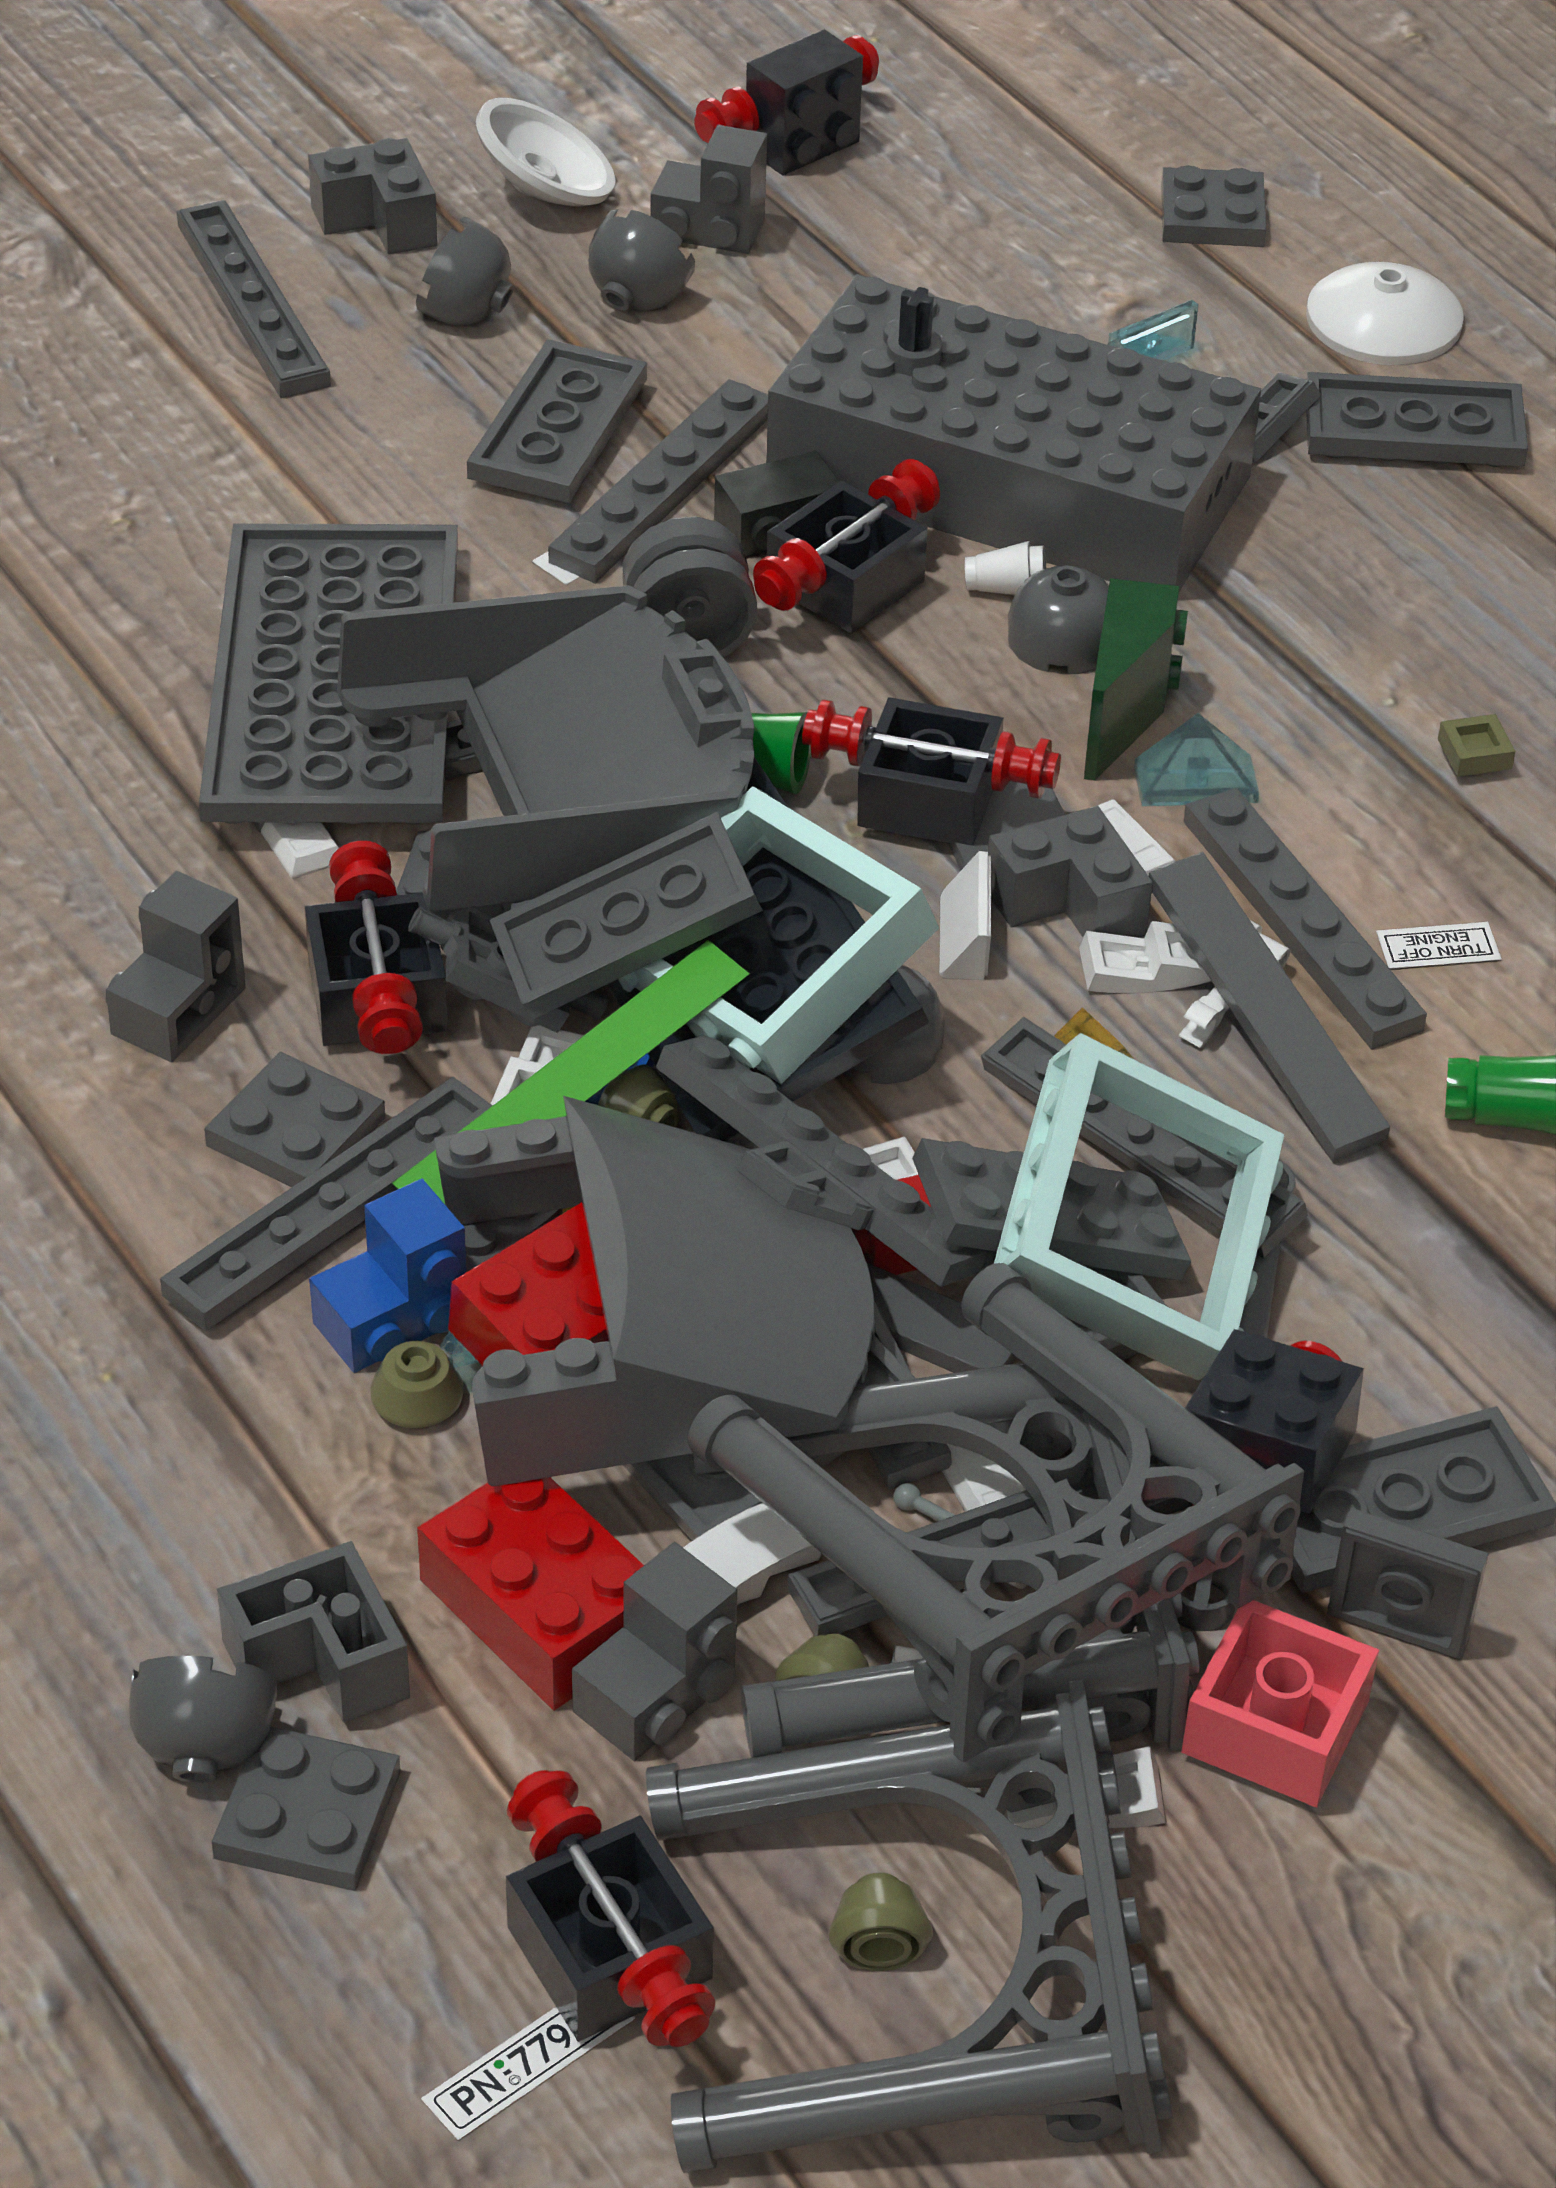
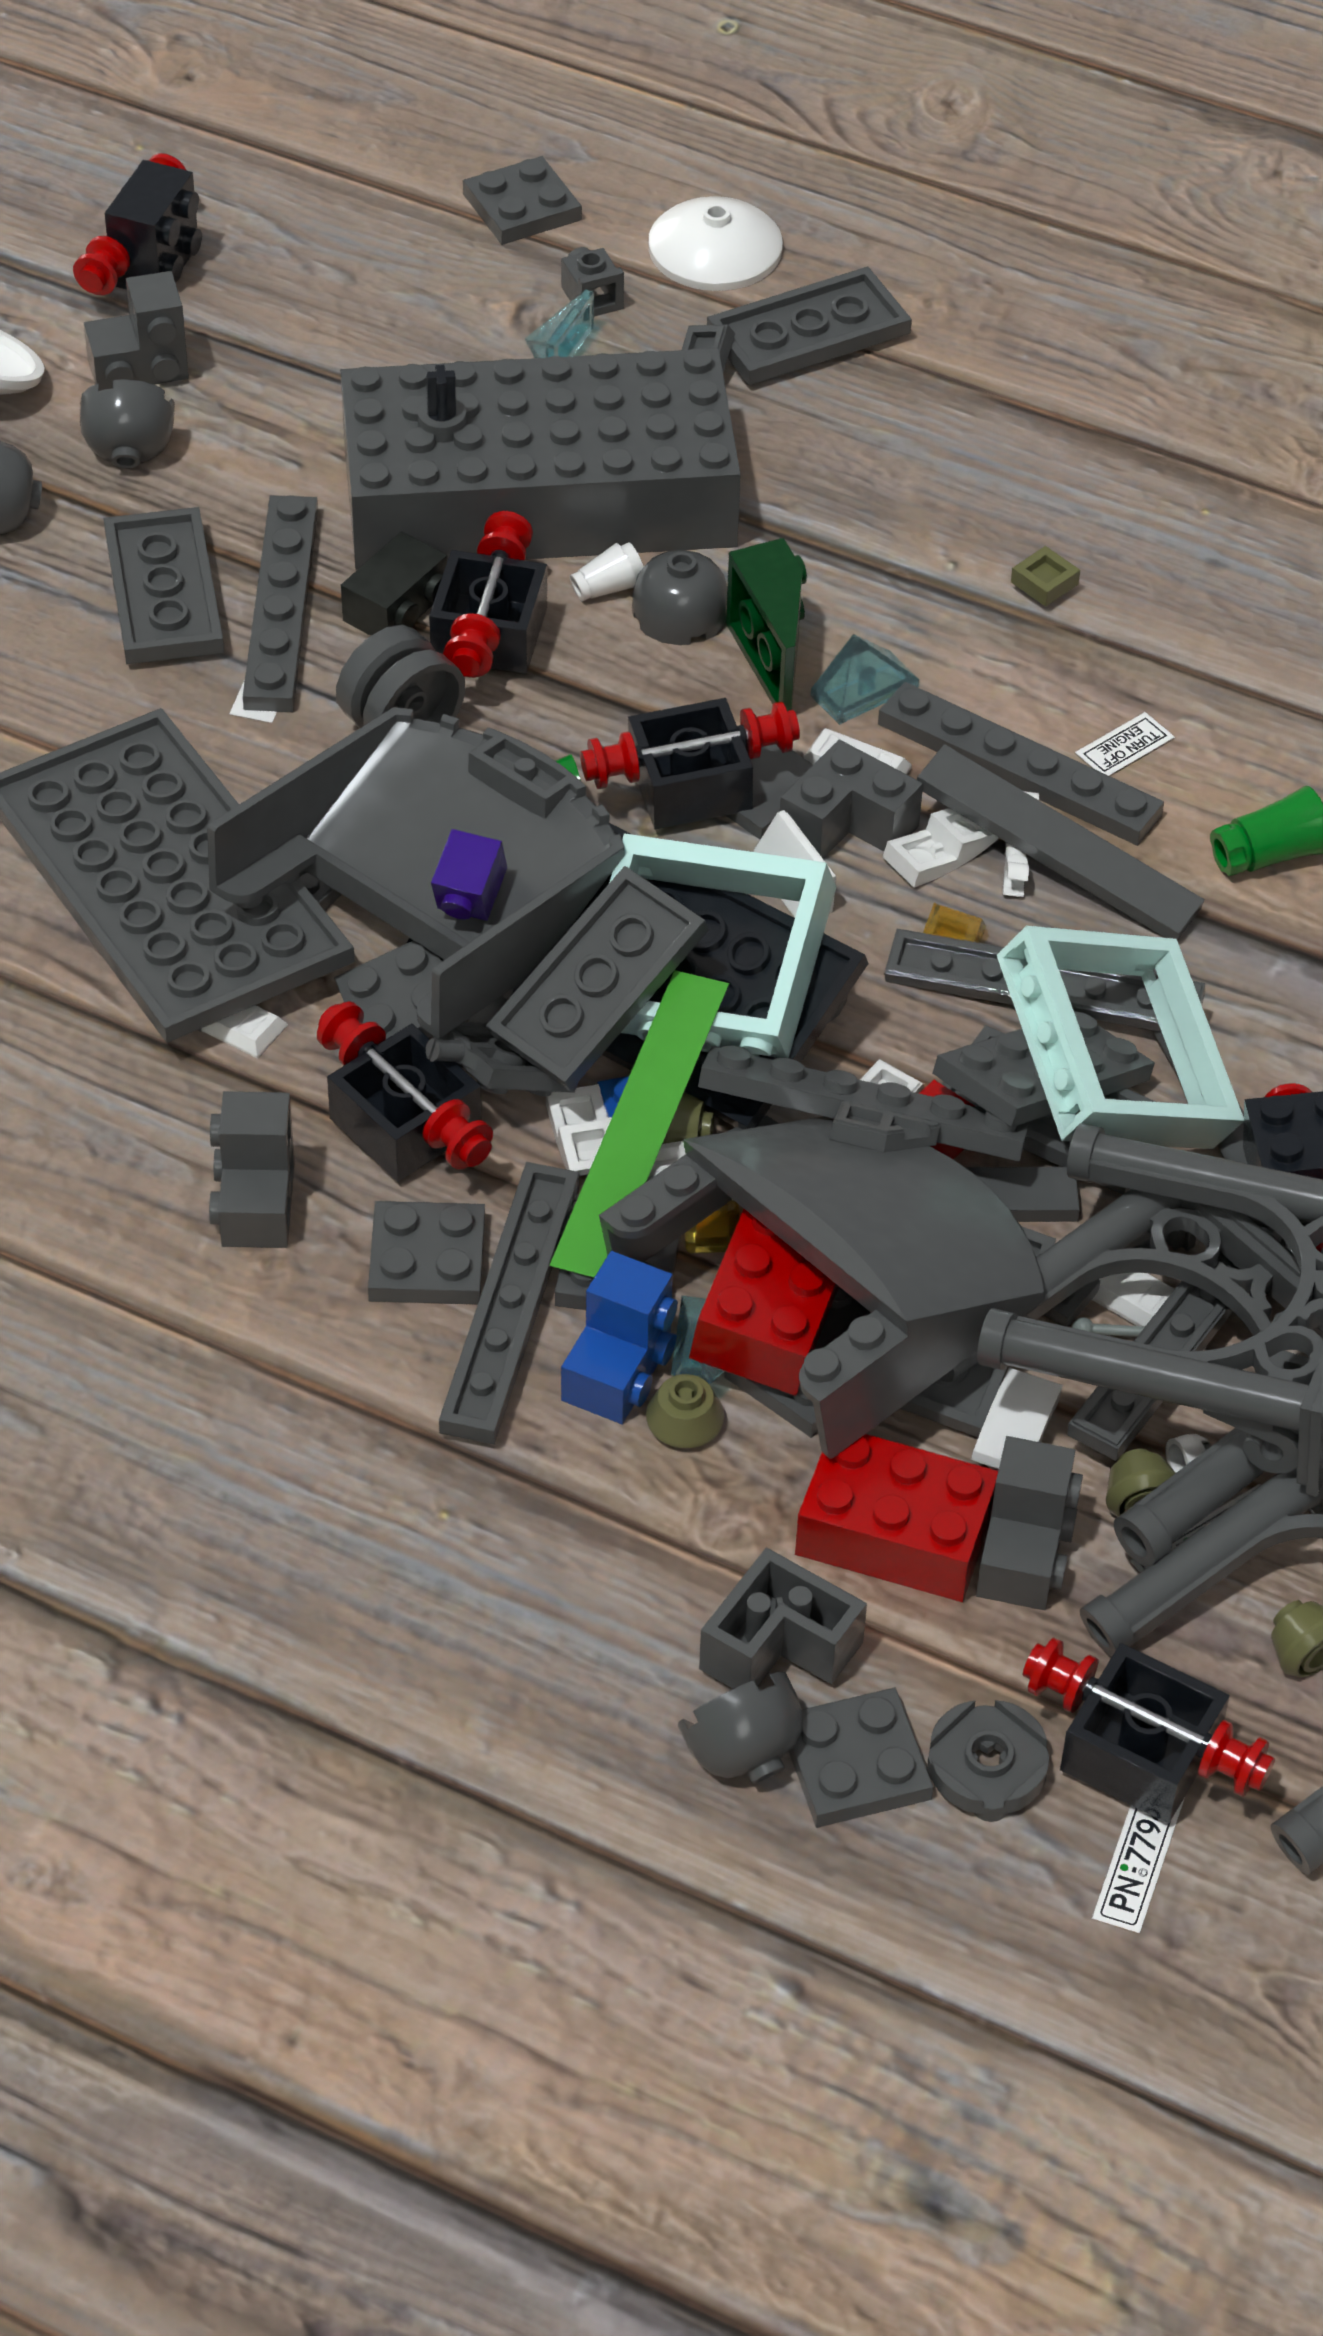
camera: 30 degrees left, 5 degrees up
(443, 1912) = (984, 1789): none -> dark grey plate
(576, 767) = (469, 875): none -> dark purple brick
(1219, 288) = (591, 270): none -> dark grey brick

